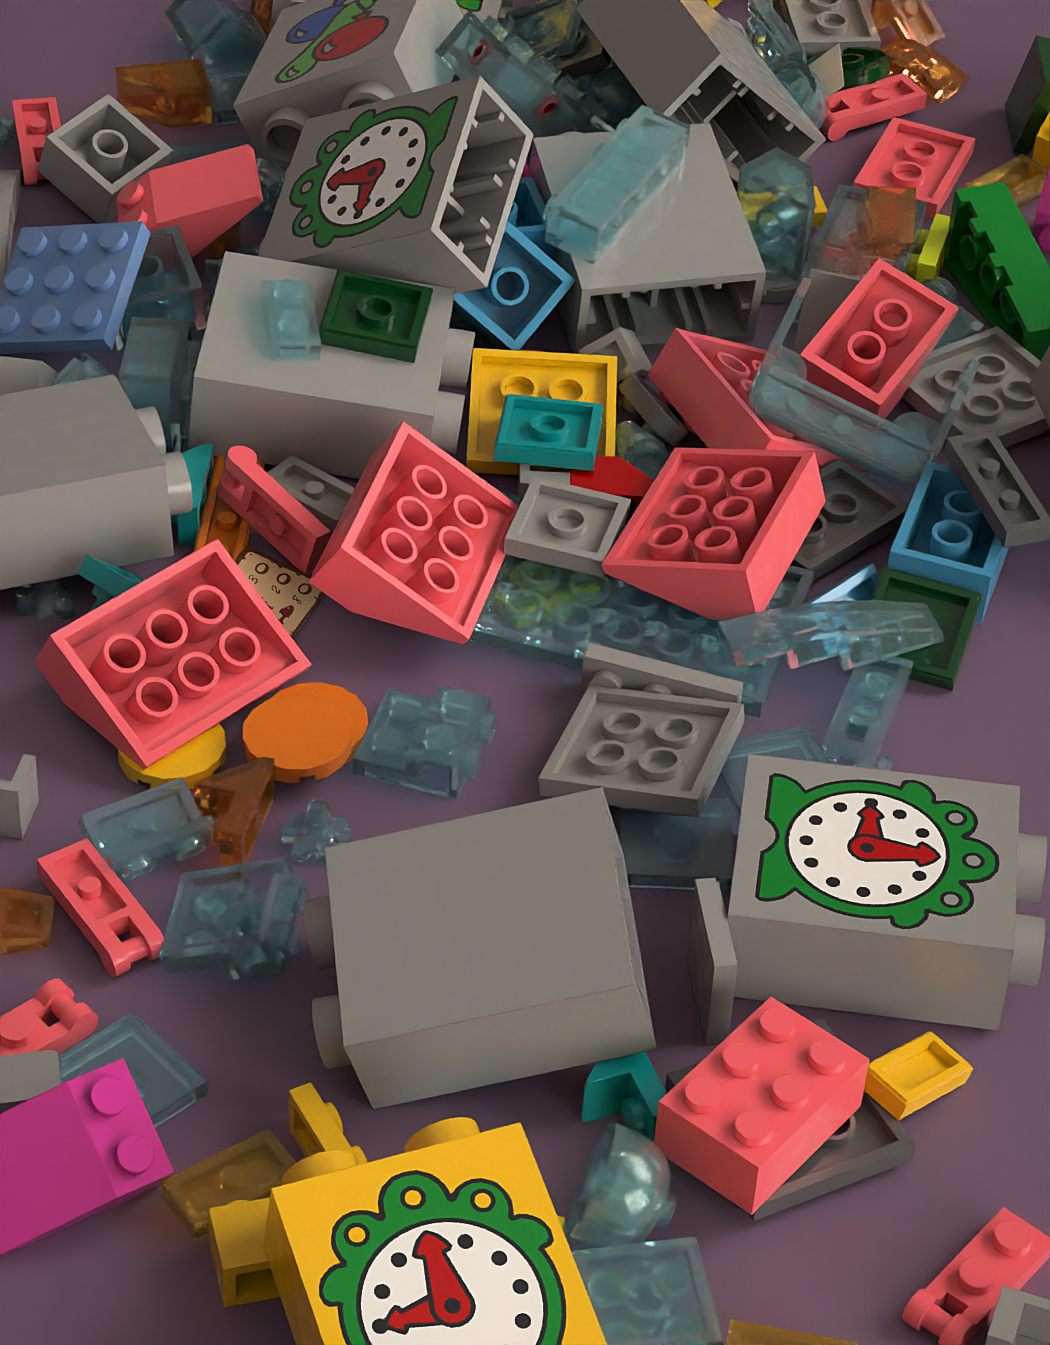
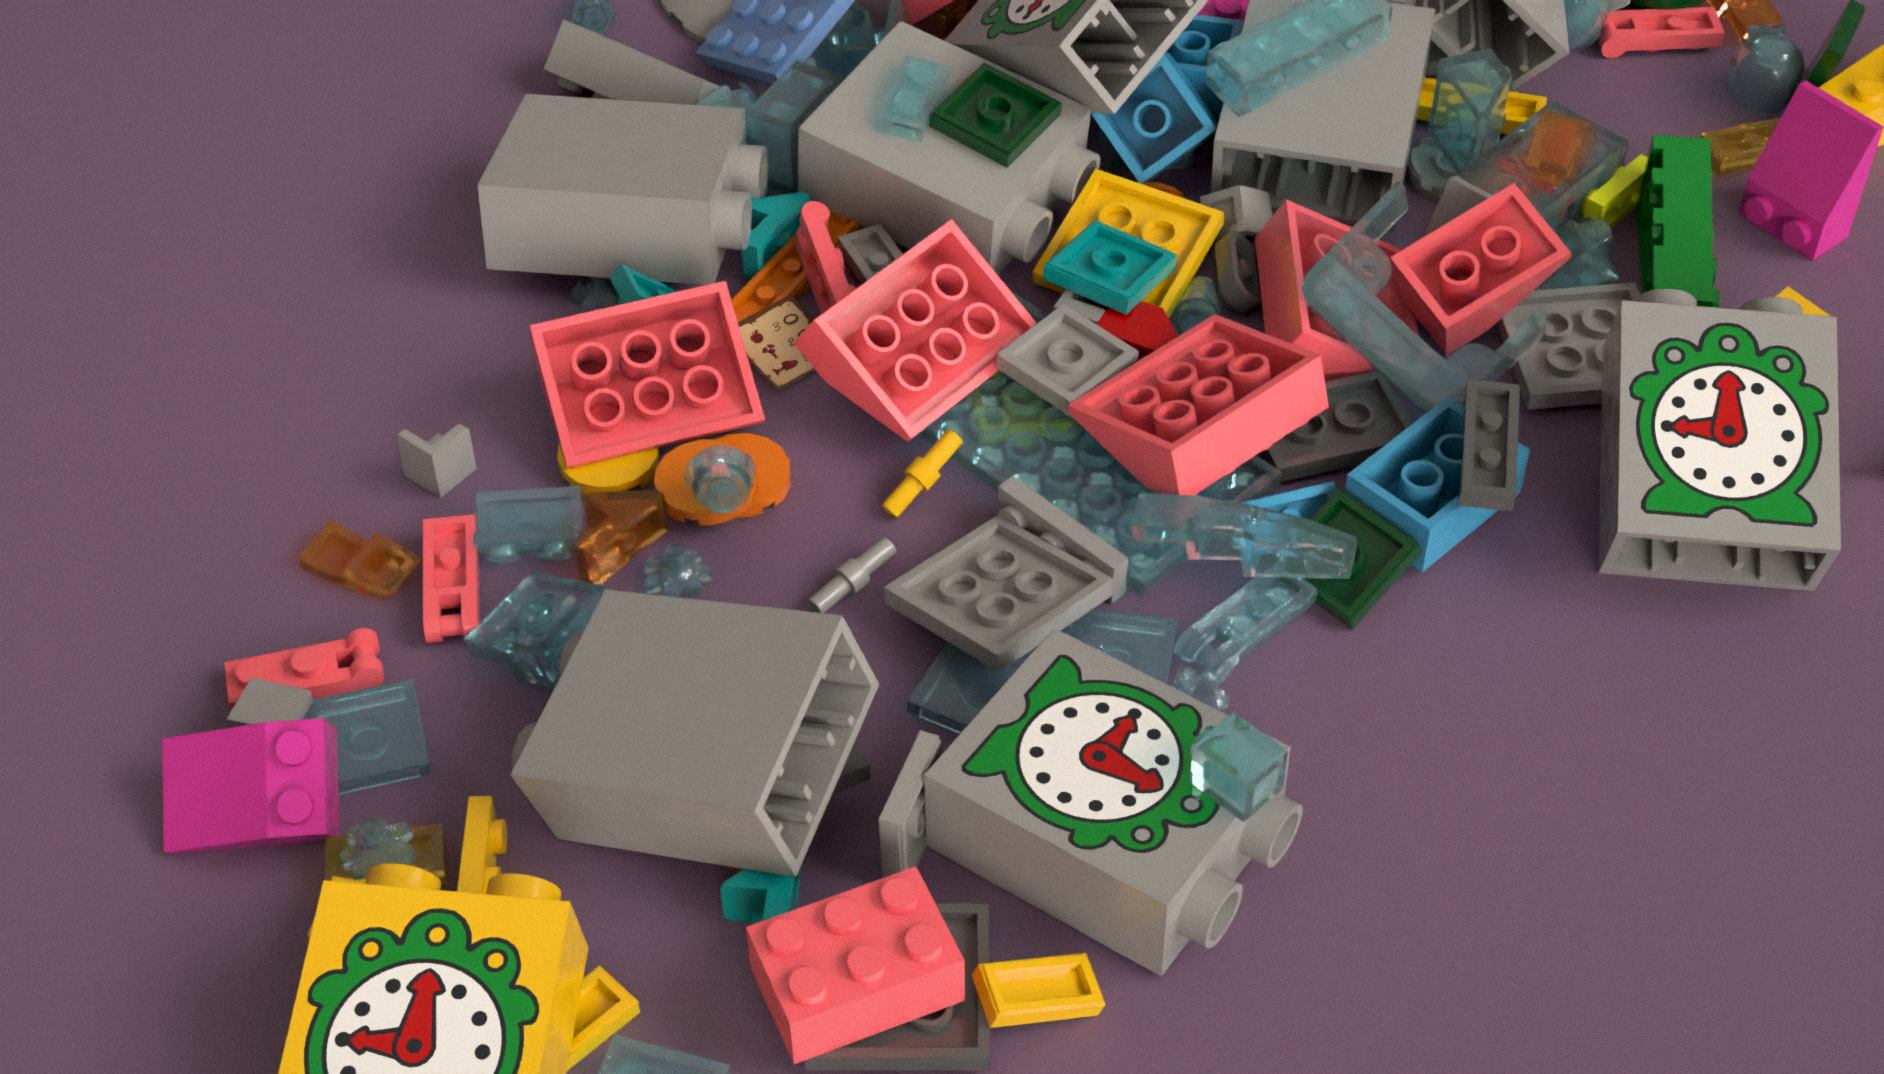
camera: 30 degrees right, 5 degrees up
(227, 1170) = (376, 843): none -> clear light blue plant
(329, 724) = (720, 478): none -> clear light blue cone
(427, 740) = (824, 519): clear light blue plate -> none
(489, 777) = (851, 576): none -> light grey bar
(495, 664) = (922, 473): none -> yellow bar
(622, 1192) = (689, 998): clear light blue cylinder -> none
(918, 159) = (1664, 98): coral plate -> none
(985, 113) = (1765, 70): none -> clear light blue helmet
(1000, 811) = (1237, 766): none -> clear light blue brick

